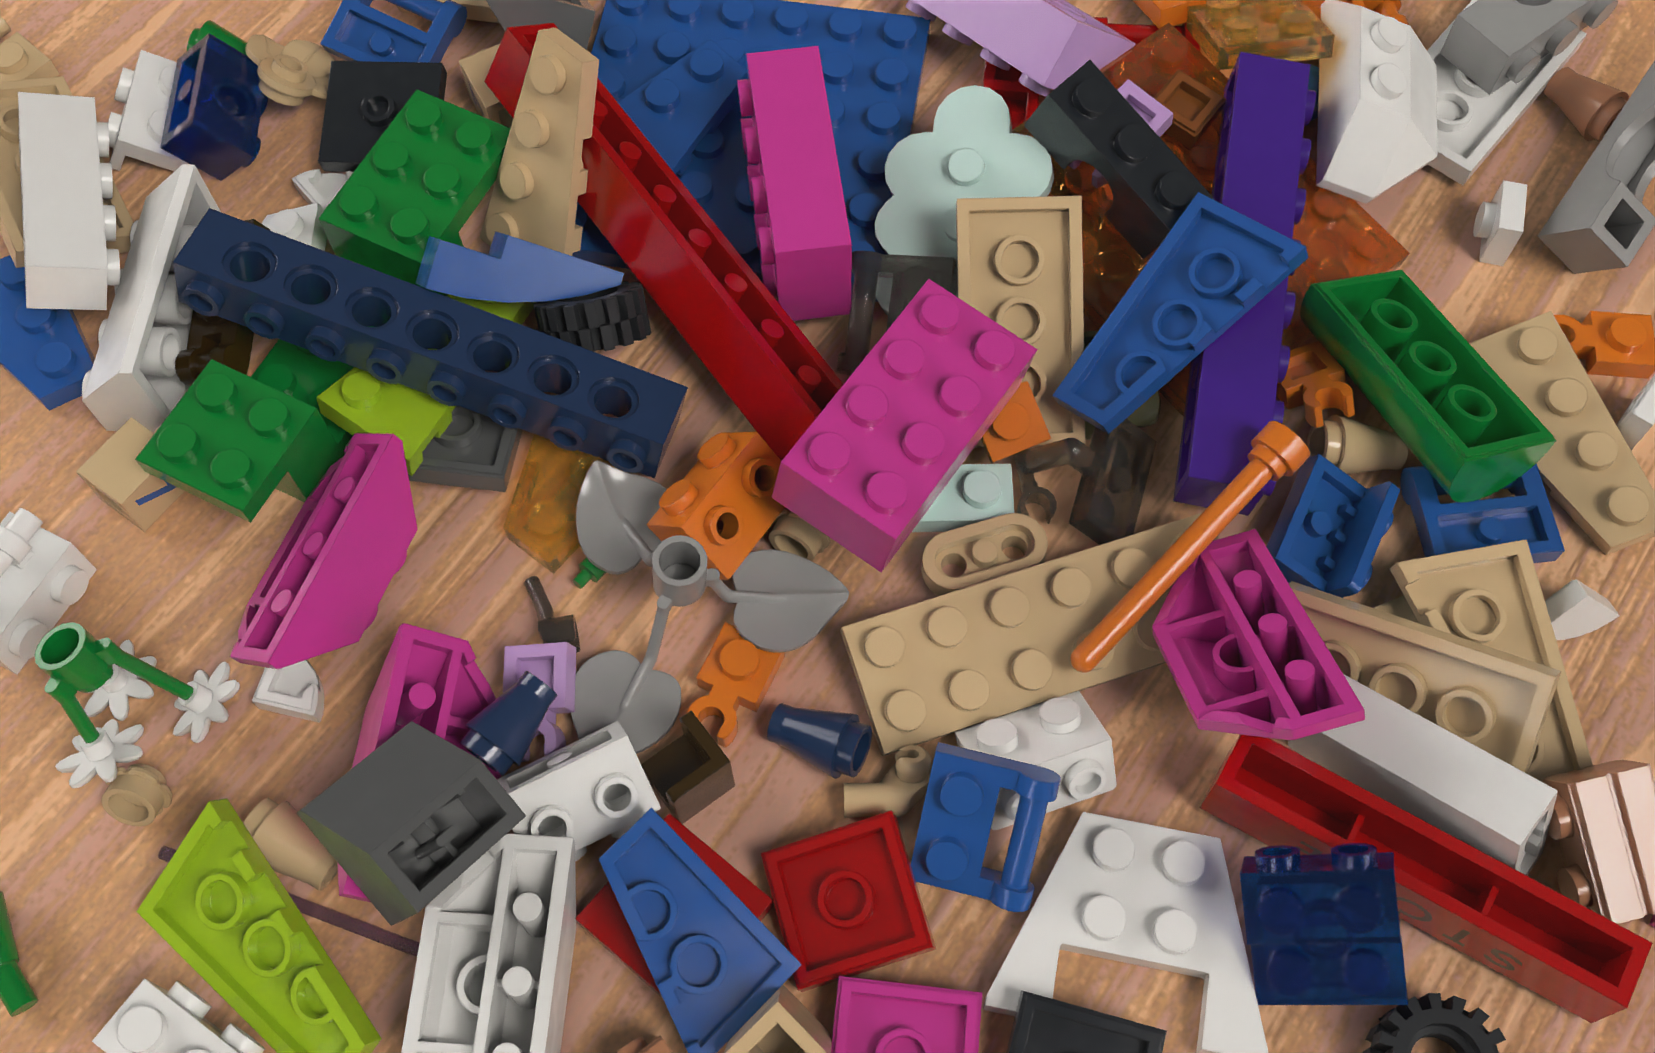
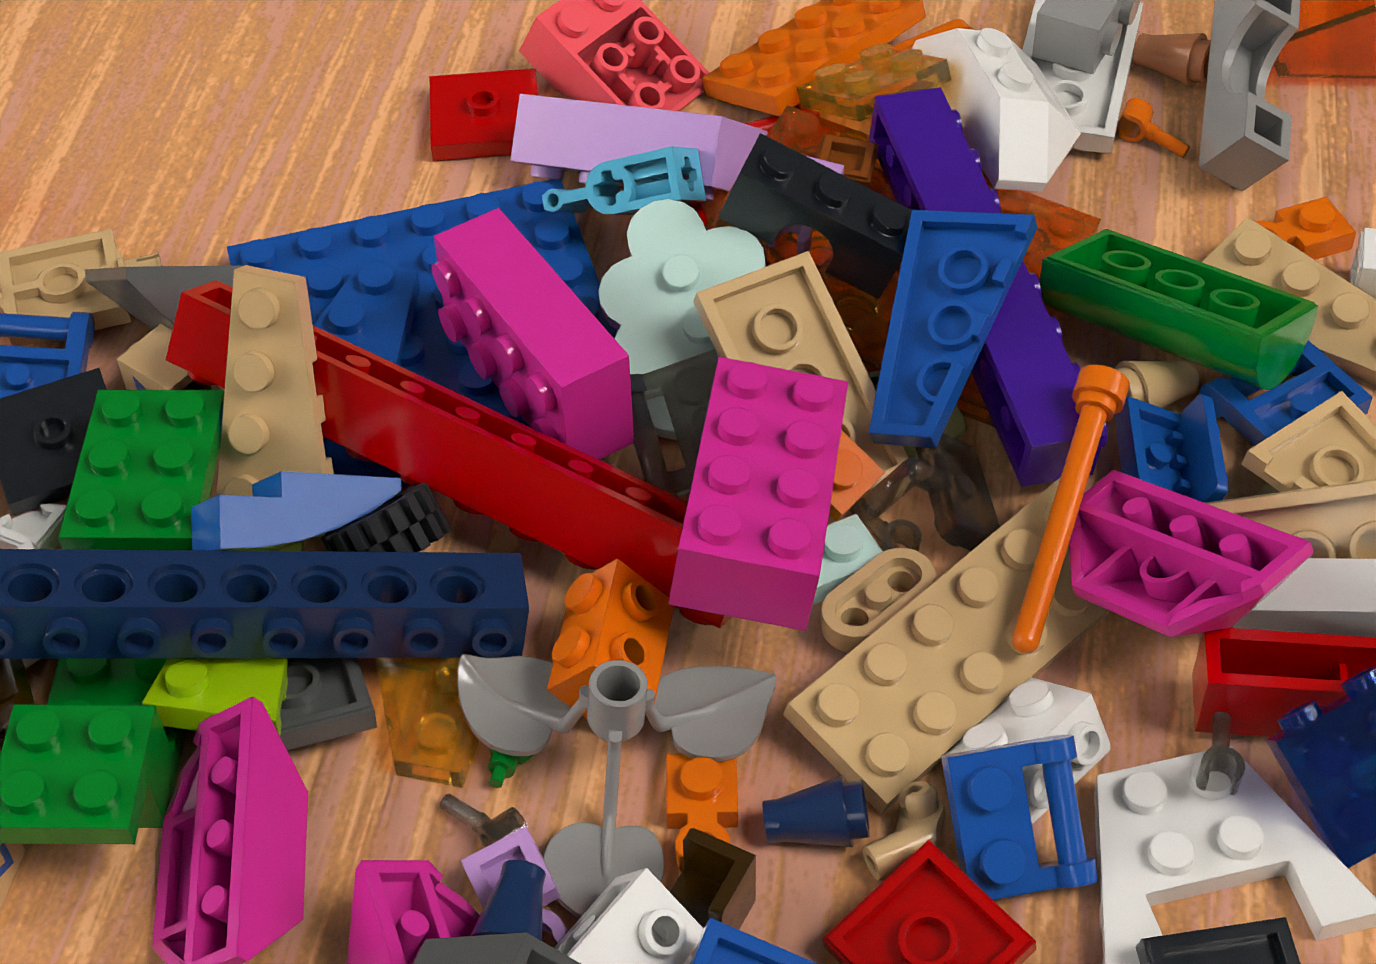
camera: 25 degrees left, 15 degrees down
(797, 536) = (693, 645): tan plate -> none
(975, 59) = (640, 180): none -> medium azure piece
(1199, 847) = (1221, 756): none -> clear smoke hand
(1316, 382) = (1094, 342): orange plate -> none
(1501, 222) = (1163, 168): white plate -> none
(1506, 164) = (1137, 124): none -> orange hand

